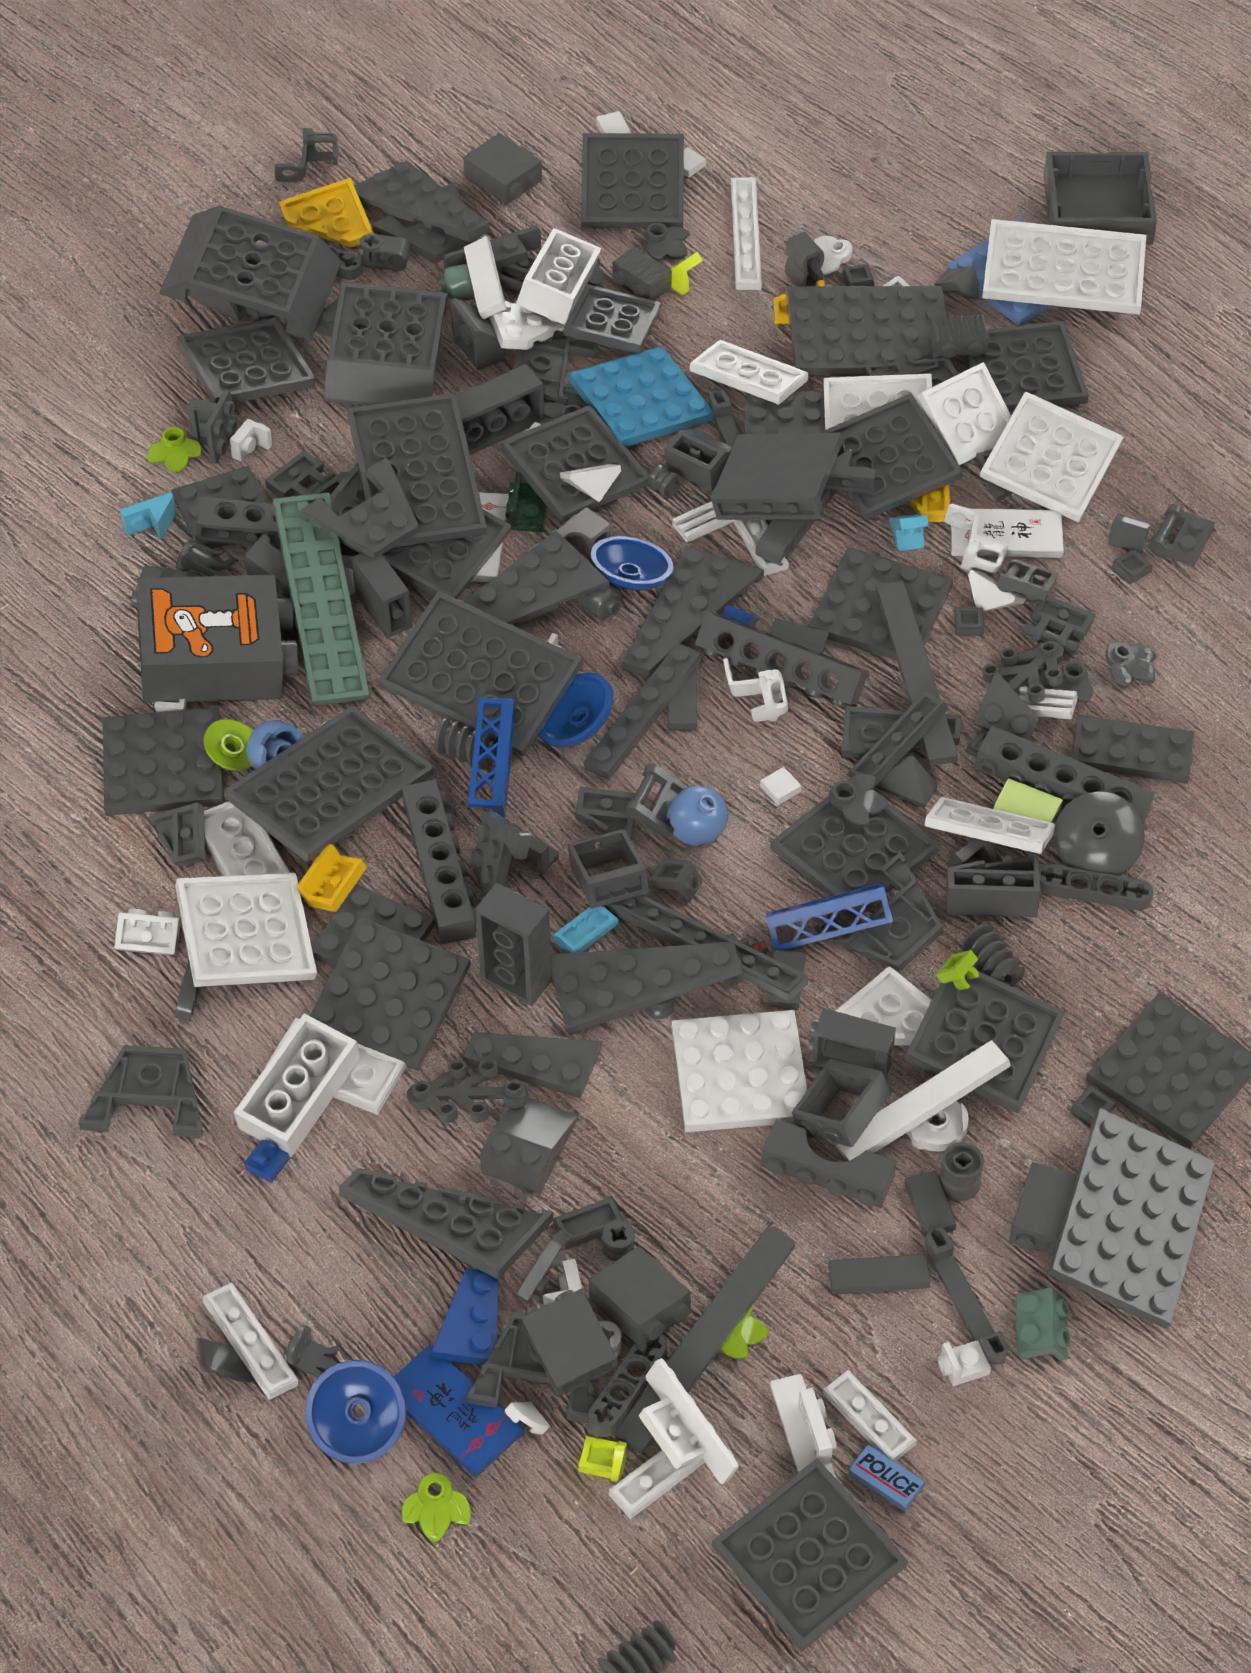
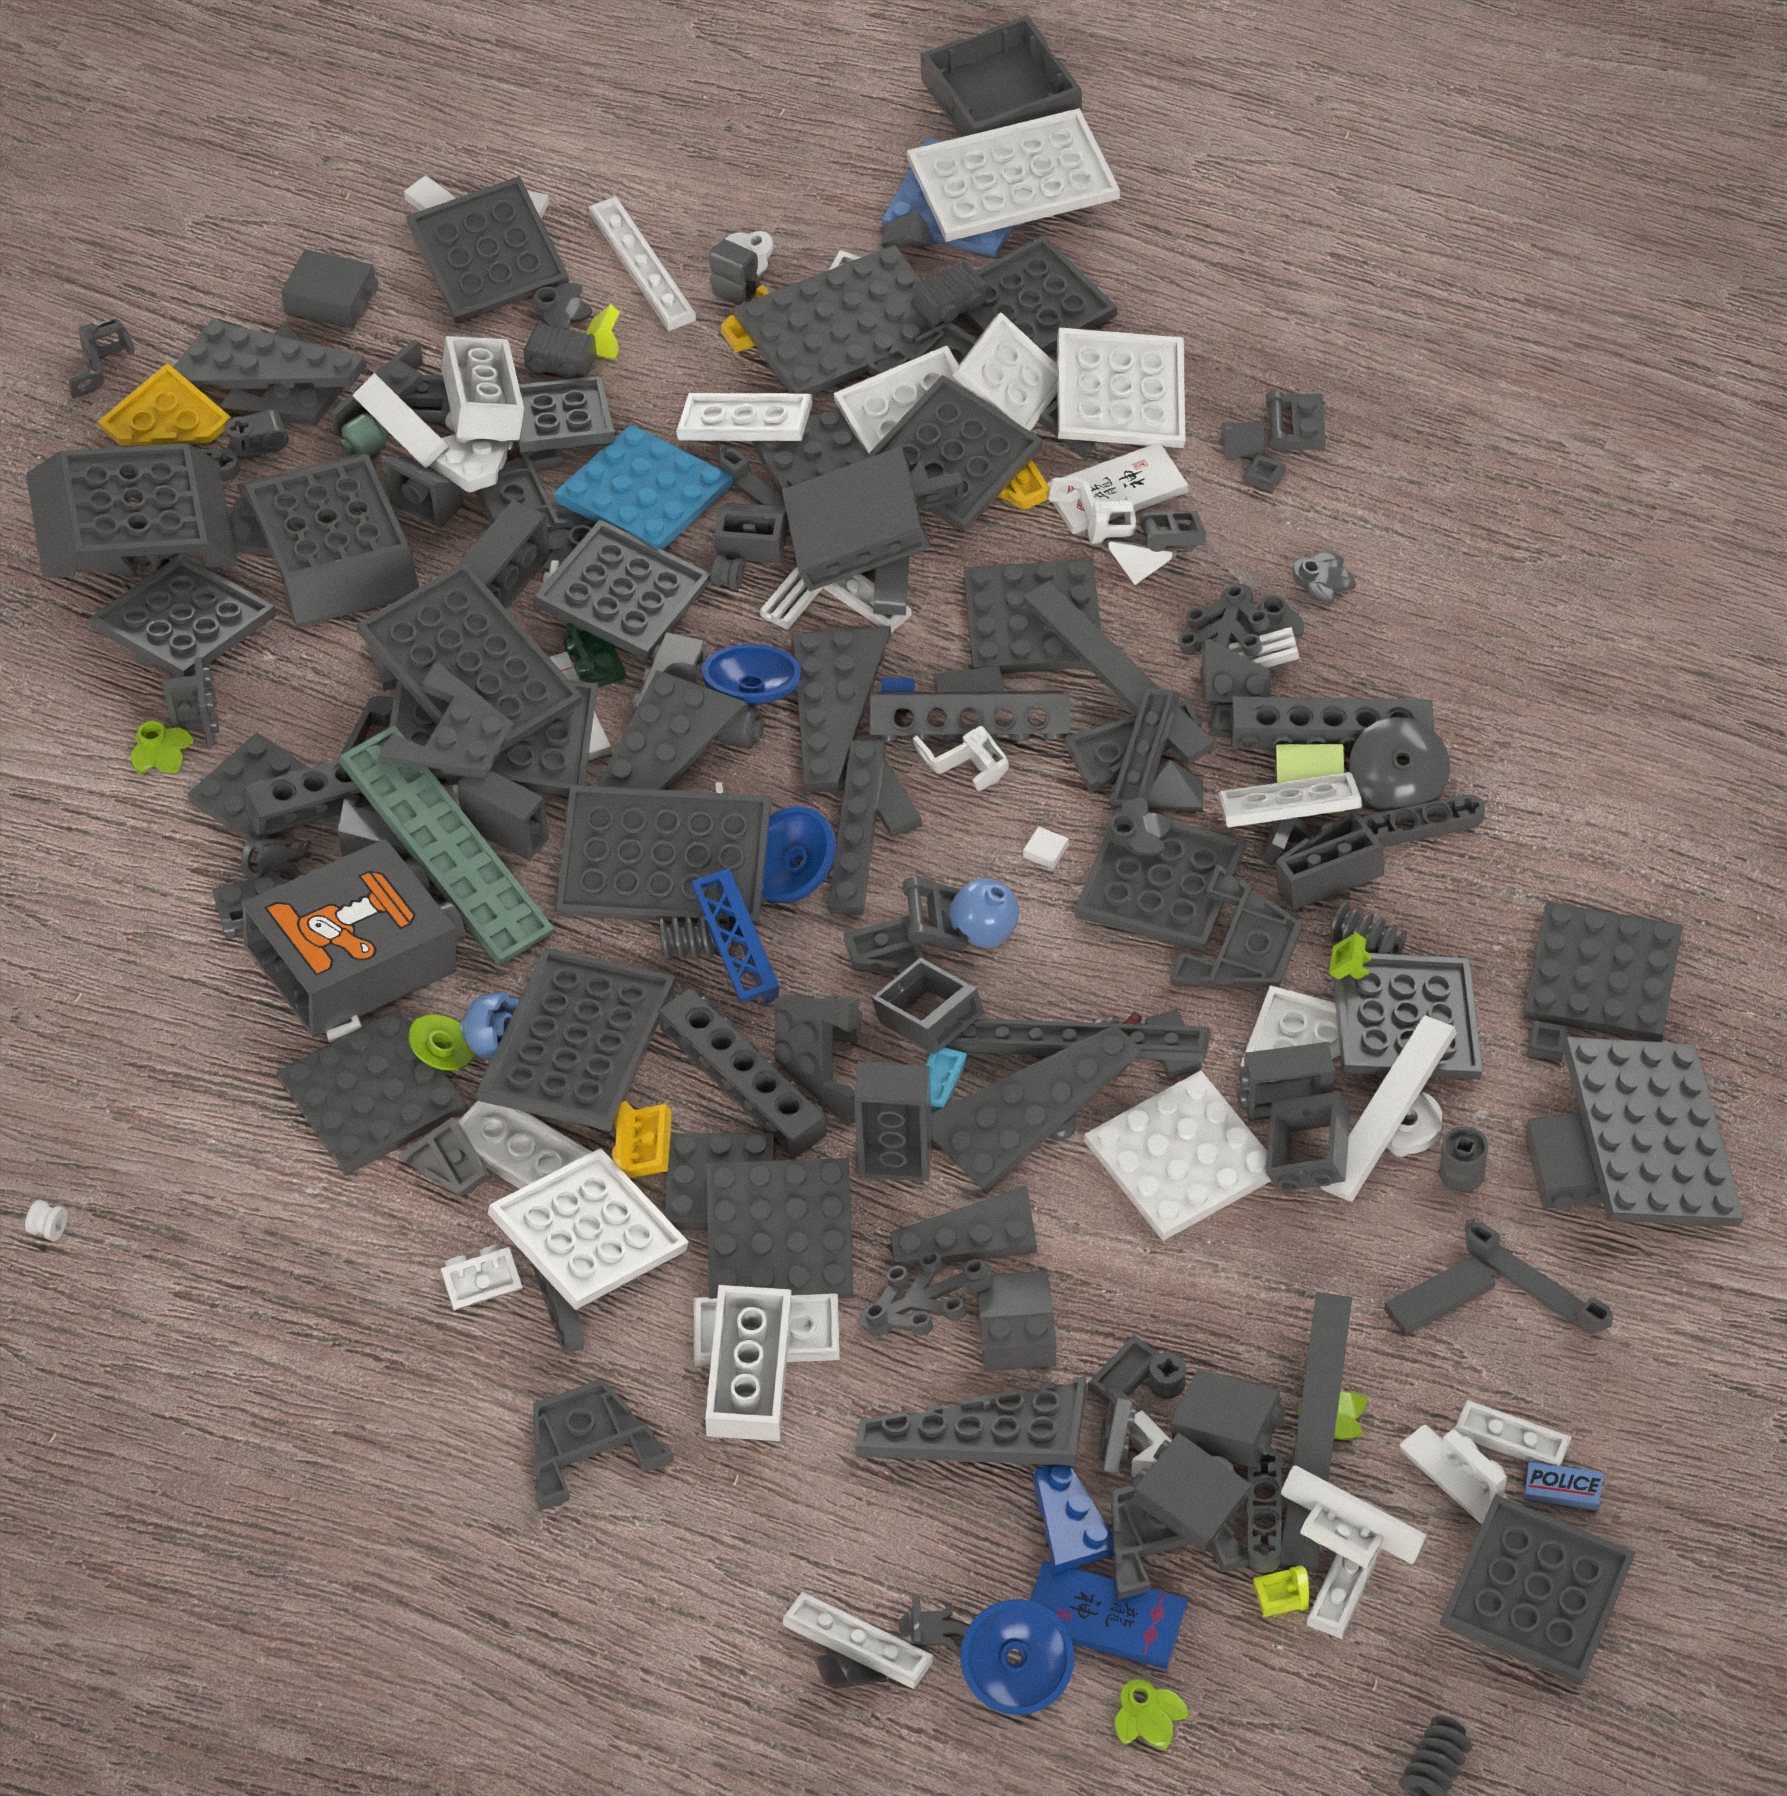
camera: 25 degrees left, 0 degrees up
(150, 513) = (183, 828): medium azure slope -> none
(248, 437) = (239, 697): white bracket -> none
(266, 1160) = (757, 1455): blue tile -> none
(296, 474) = (317, 721): dark grey plate -> none
(529, 1415) = (1181, 1582): white tile -> none
(592, 480) = (657, 599): white slope -> none
(678, 876) = (1001, 984): dark grey bracket -> none
(824, 906) = (1174, 950): fence -> none
(858, 275) = (794, 267): dark grey tile -> none
(862, 1178) = (1286, 1214): dark grey arch -> none
(908, 531) = (1016, 524): medium azure slope -> none
(930, 1201) = (1446, 1203): dark grey tile -> none
(963, 1362) = (1571, 1343): white bracket -> none
(968, 621) = (1133, 597): dark grey tile -> none
(1042, 1324) = (1623, 1273): sand green bracket -> none
(1062, 617) = (1228, 555): dark grey plate -> none
(1133, 748) = (1377, 663): dark grey plate -> none

